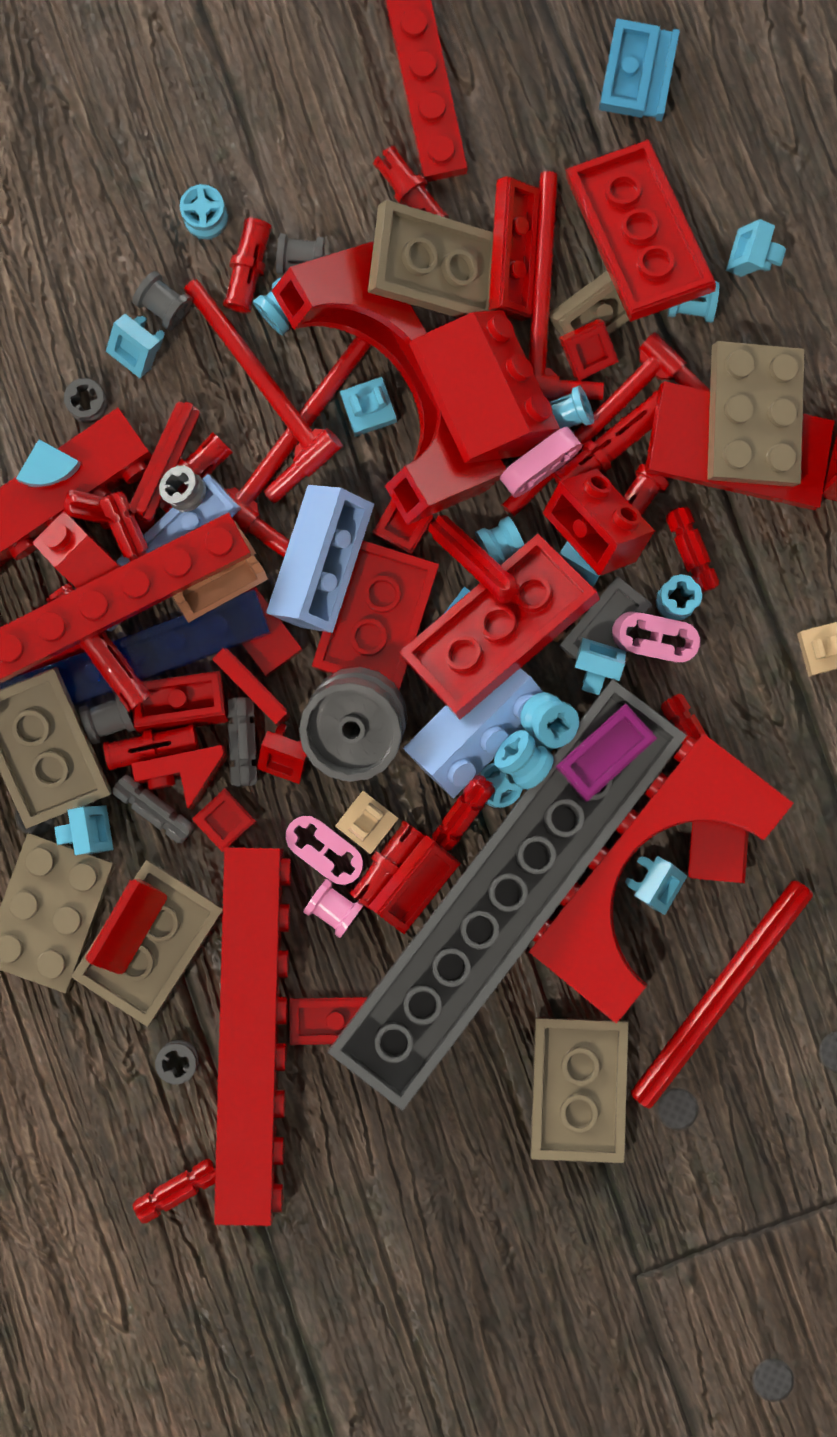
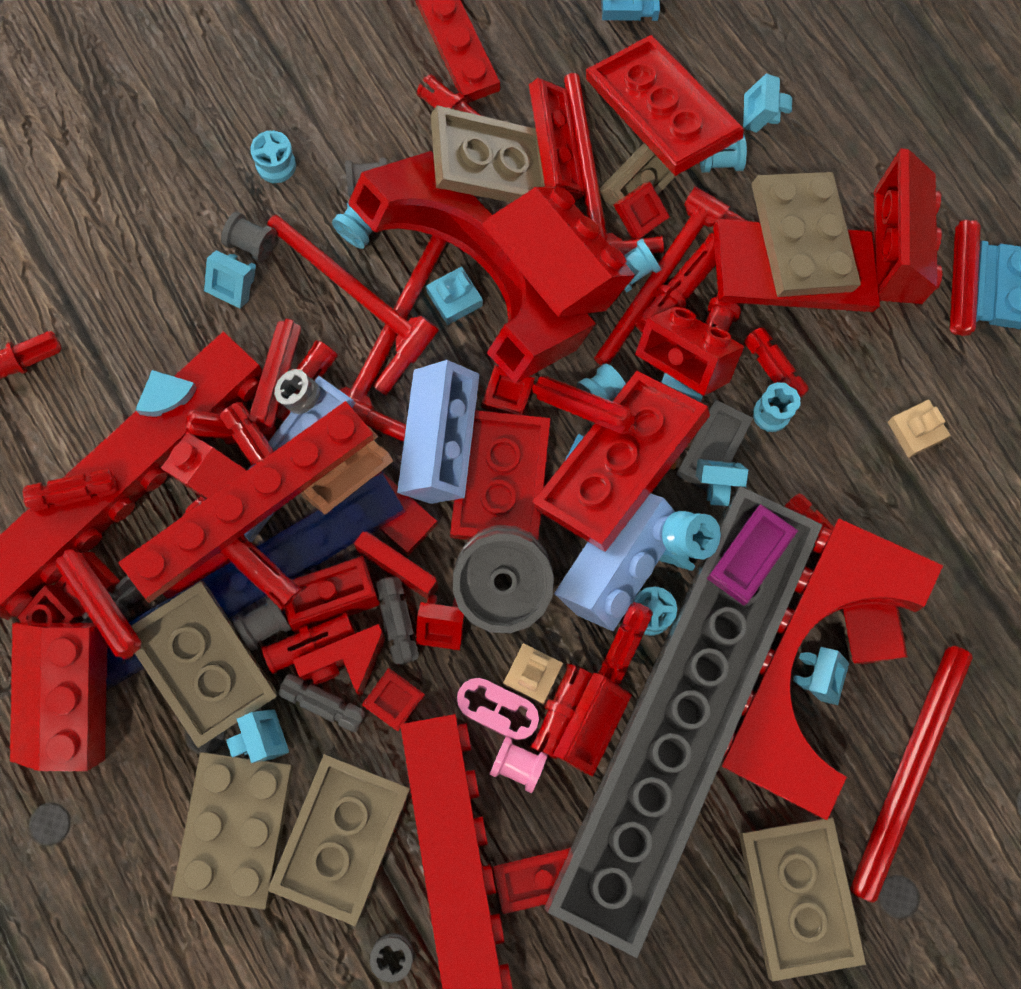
camera: 20 degrees left, 10 degrees down
(73, 394) = (179, 334): dark grey bush -> none
(126, 926) = (316, 826): red slope -> none
(247, 265) = (321, 195): red pin -> none
(523, 759) = (675, 577): medium azure wheel -> none
(541, 461) = (623, 309): bright pink beam -> none
(658, 627) = (765, 436): bright pink beam -> none

